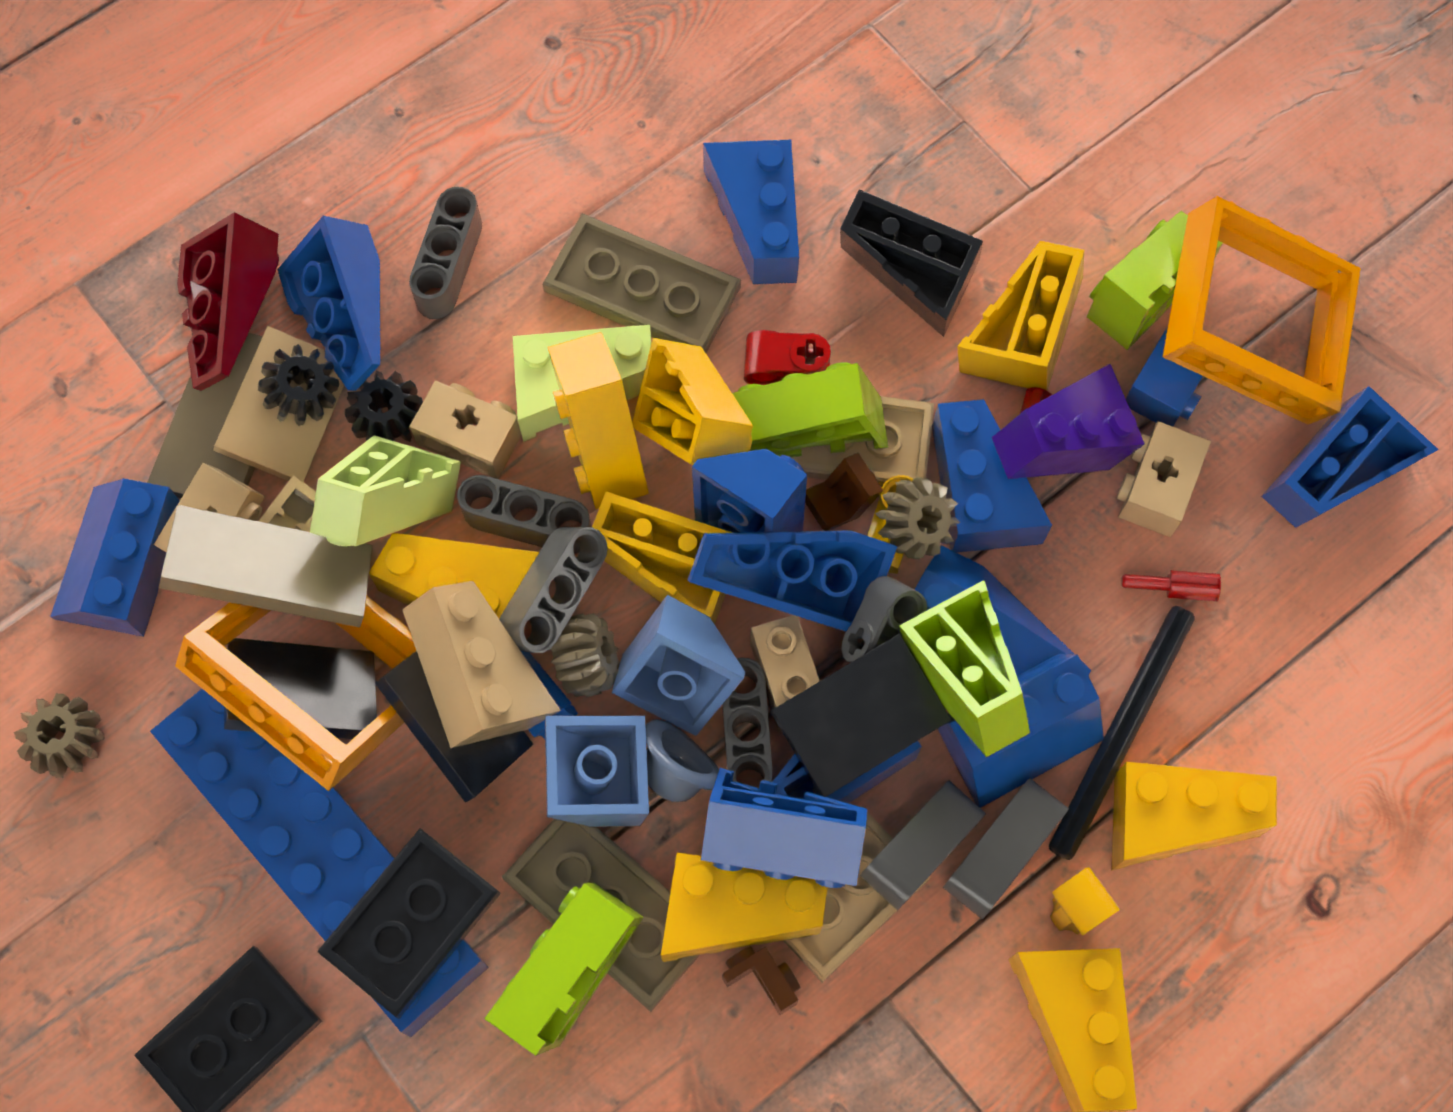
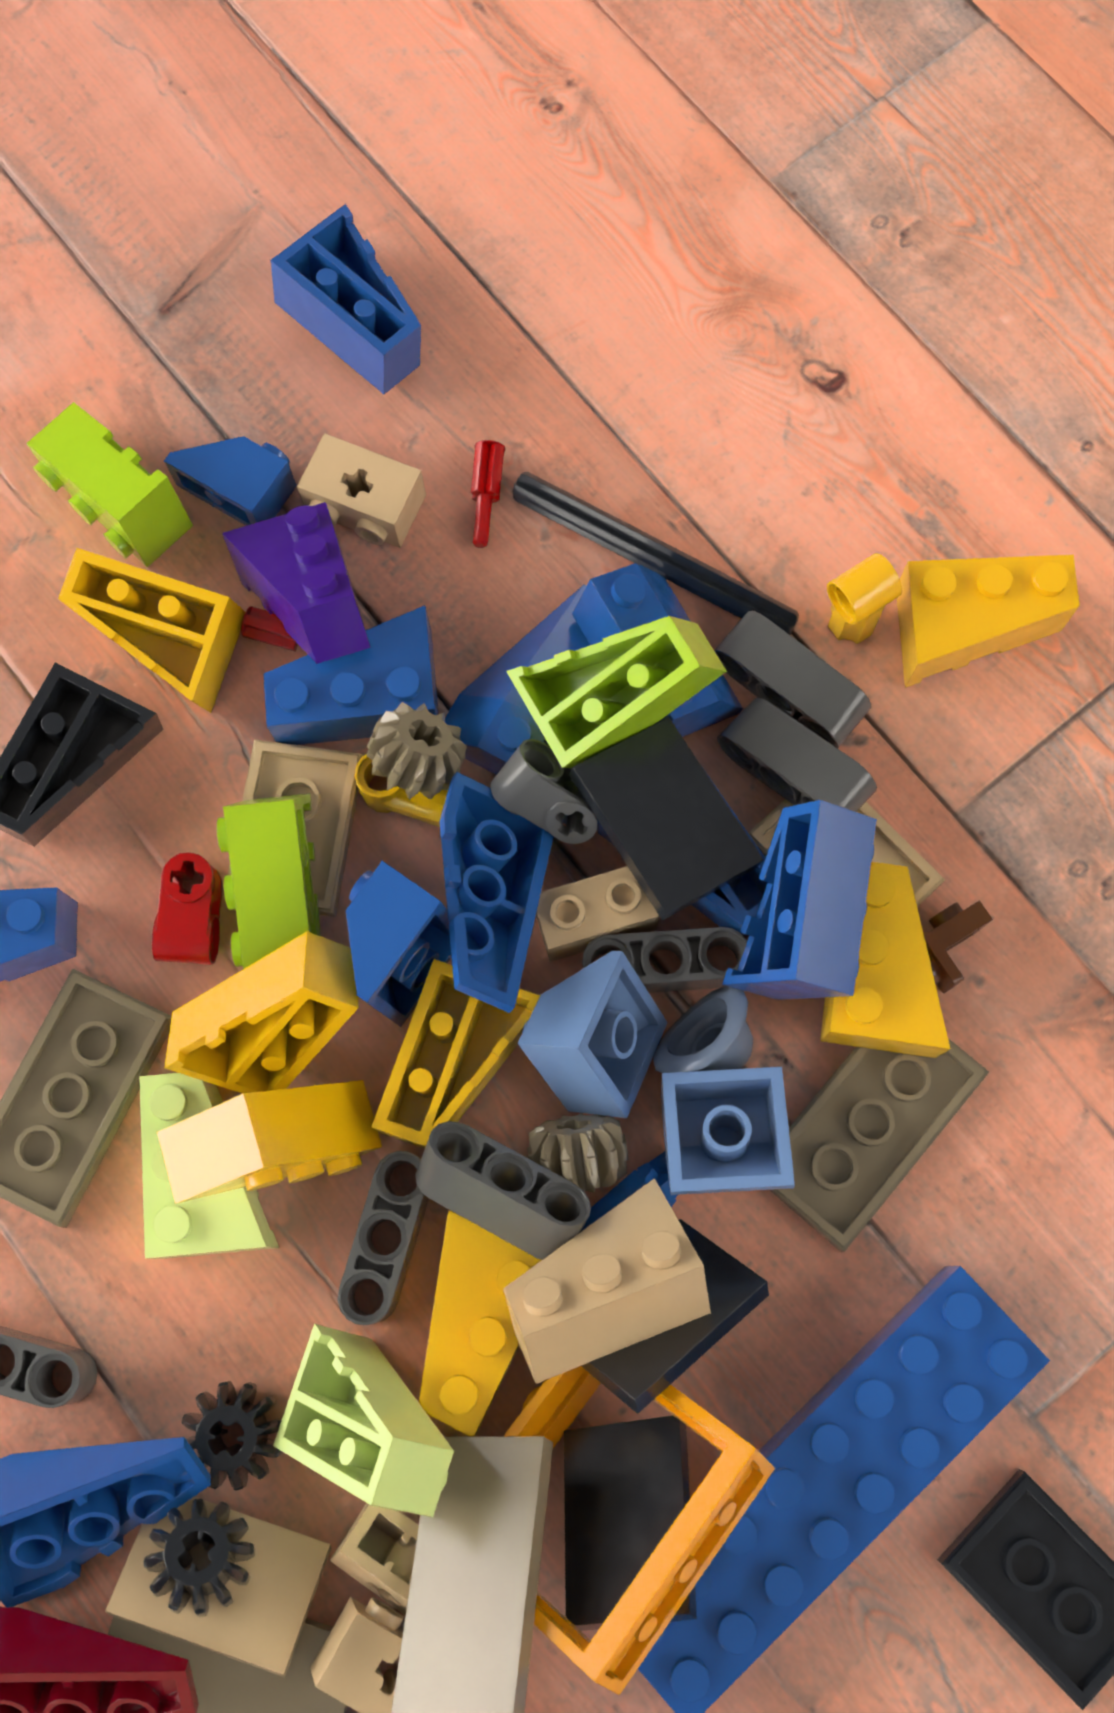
camera: 85 degrees left, 5 degrees up
(409, 923) = (929, 1355): black tile -> none
(479, 446) = (263, 1356): tan brick -> none
(564, 969) = (963, 1167): lime wedge -> none
(843, 494) = (369, 837): reddish brown bracket -> none
(1186, 344) = (175, 302): light orange window -> none
(1186, 809) = (751, 498): yellow wedge -> none

